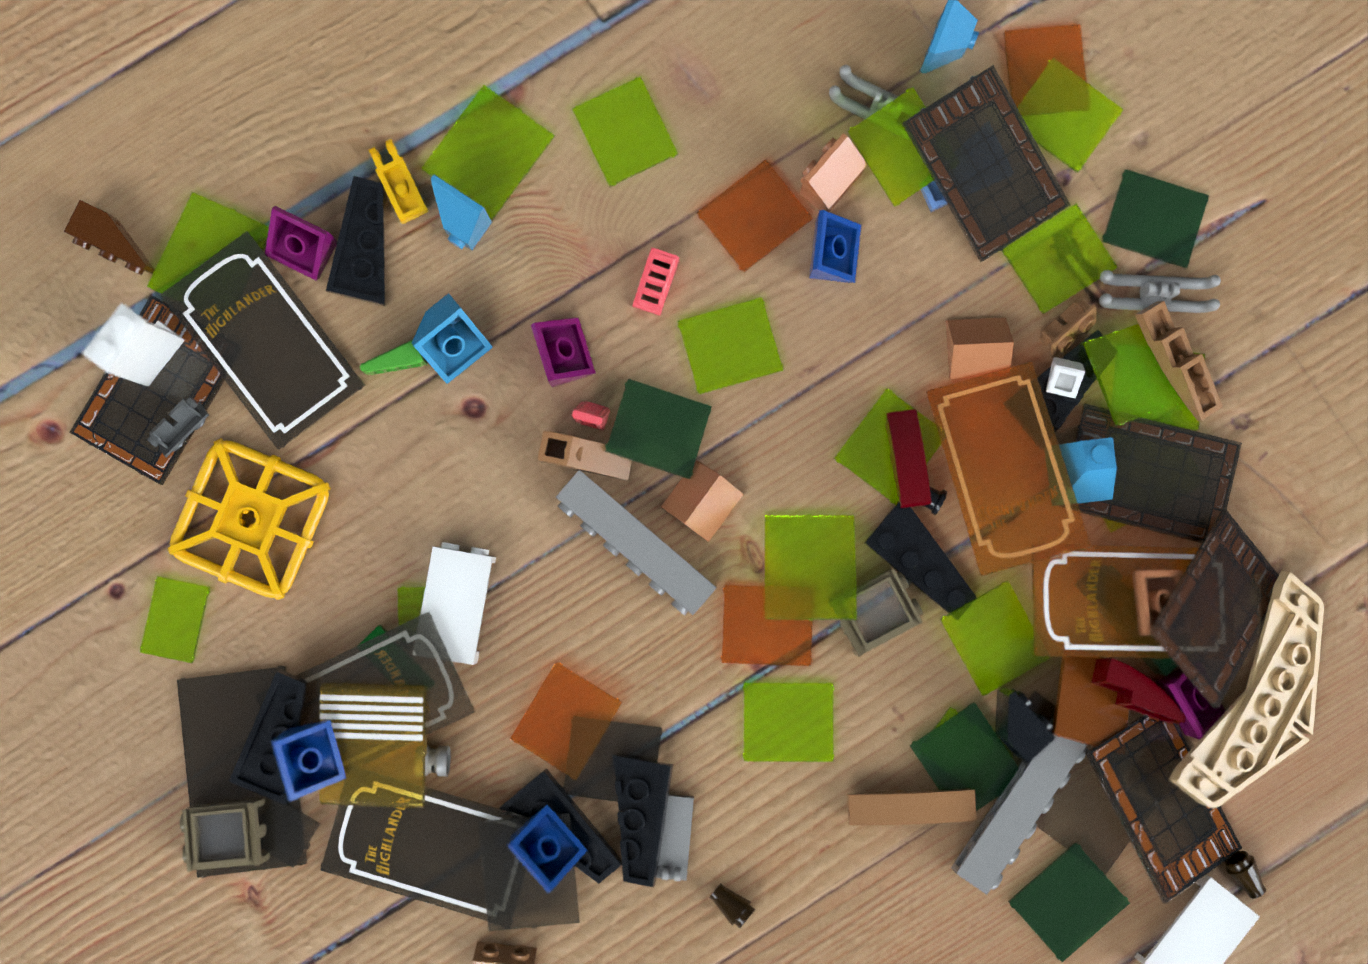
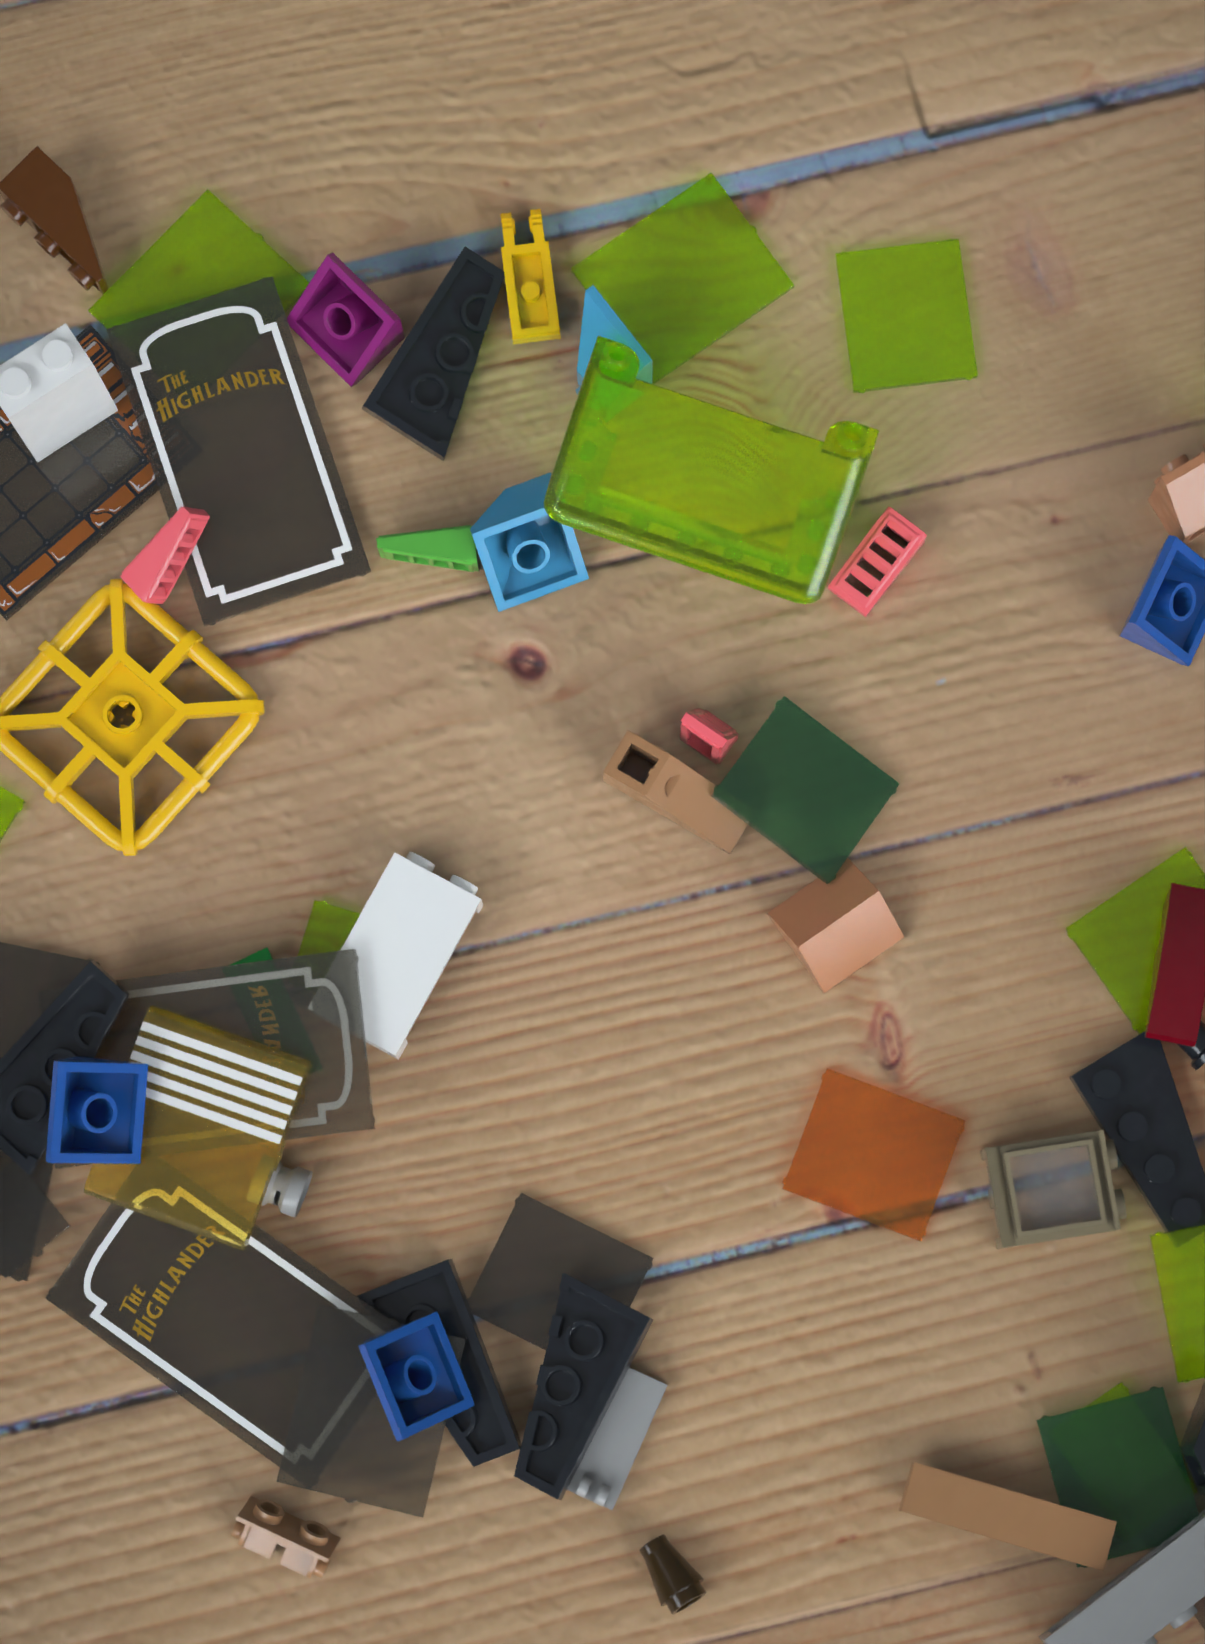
camera: 20 degrees right, 5 degrees down
(188, 416) = (87, 530): dark grey hinge -> none
(240, 417) = (161, 561): none -> coral slope
(538, 269) = (705, 481): none -> clear neon green windscreen
(563, 350) = (697, 621): magenta slope -> none
(566, 720) = (508, 1195): clear orange piece -> none
(636, 542) = (711, 954): light grey brick -> none
(730, 345) = (960, 700): clear neon green piece -> none
(754, 216) = (1065, 511): clear orange piece -> none
(788, 722) = (856, 1318): clear neon green piece -> none
(810, 567) = (971, 1083): clear neon green piece -> none

